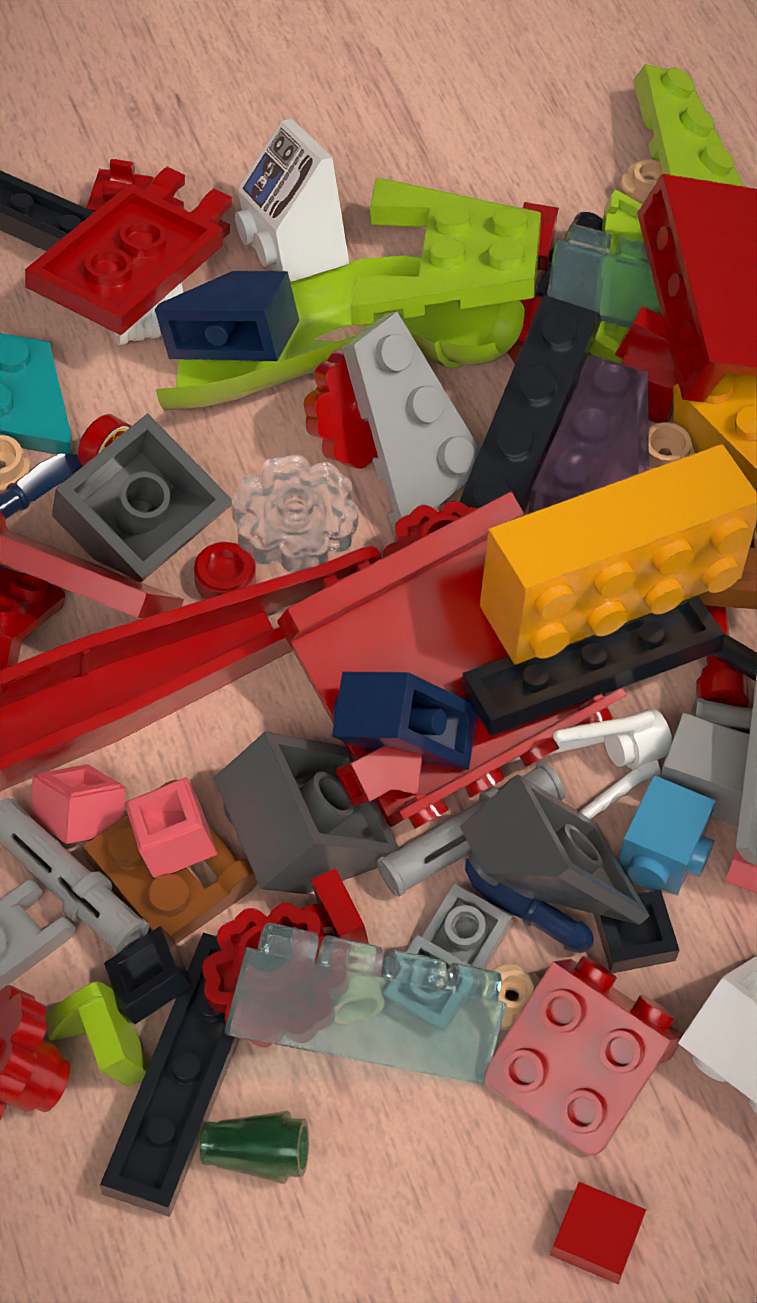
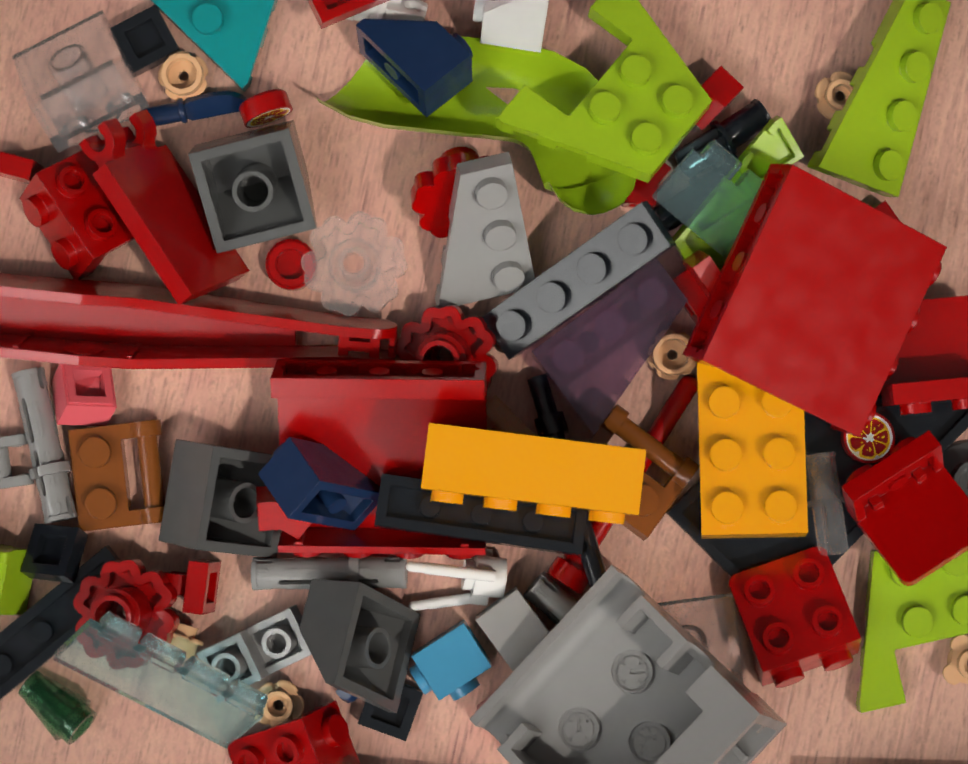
camera: 30 degrees right, 30 degrees up
(170, 828) = (123, 463): coral slope -> none

